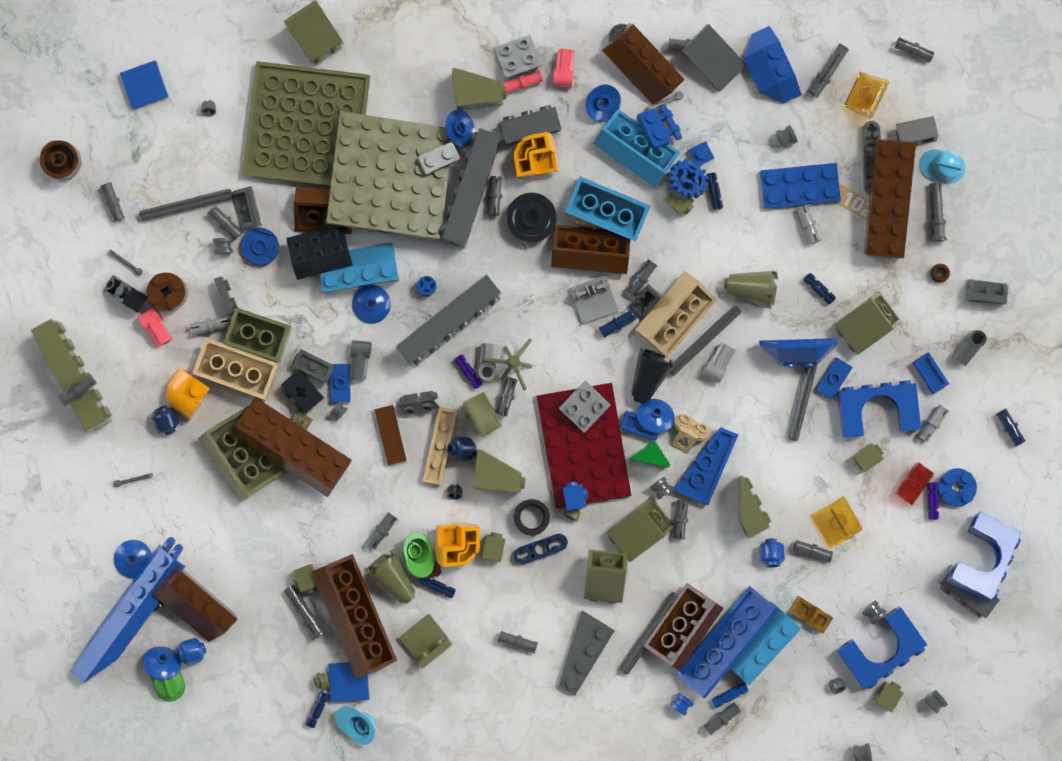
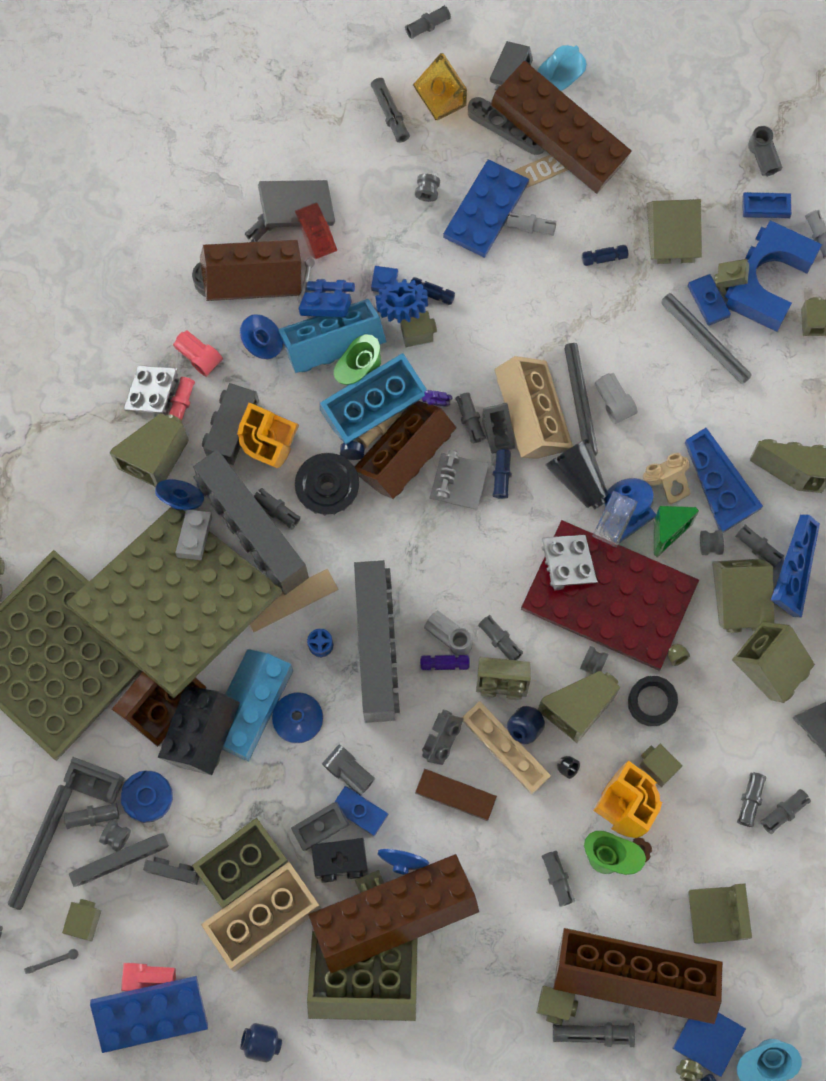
camera: 50 degrees left, 15 degrees down
(125, 293) = (85, 985): black slope -> none
(135, 343) = (149, 1014): none -> blue plate
(160, 262) = (82, 920): none -> olive brick
(160, 283) = (103, 935): reddish brown brick -> none
(185, 393) = (247, 995): light orange brick -> none
(210, 258) = (118, 860): none -> dark grey beam
(210, 325) = (192, 913): light grey pin -> none
(324, 431) = (402, 860): none -> blue dish
(339, 411) = (390, 833): dark grey bush -> none
(391, 577) = (619, 902): olive cone -> none
(437, 586) = (664, 858): dark blue axle -> none
(456, 254) = (301, 596): none -> tan sticker
(510, 617) = (751, 799): none -> dark grey pin
(513, 363) = (469, 602): olive plant -> none
(529, 557) = (692, 695): dark blue beam -> none
(532, 464) = (594, 660): none -> dark grey wheel
(566, 218) = (352, 450): none -> dark blue tile
(575, 496) = (662, 635): blue brick -> none
(626, 179) = (358, 360): none -> bright green piece
(631, 417) = (615, 519): none -> clear plate
(637, 248) = (437, 398): none -> dark purple axle
(677, 553) = (795, 573): none -> blue wing
(700, 86) = (315, 231): none -> clear red slope
(753, 287) = (560, 312): olive cone -> none
(771, 67) = (346, 156): blue wedge -> none
(798, 351) = (657, 312): blue wedge -> none
(858, 383) = (732, 274): none -> olive bracket
(937, 222) = (615, 105): dark grey pin -> none
(946, 273) = (670, 129): reddish brown plate -> none
(987, 292) = (719, 104): dark grey hinge -> none

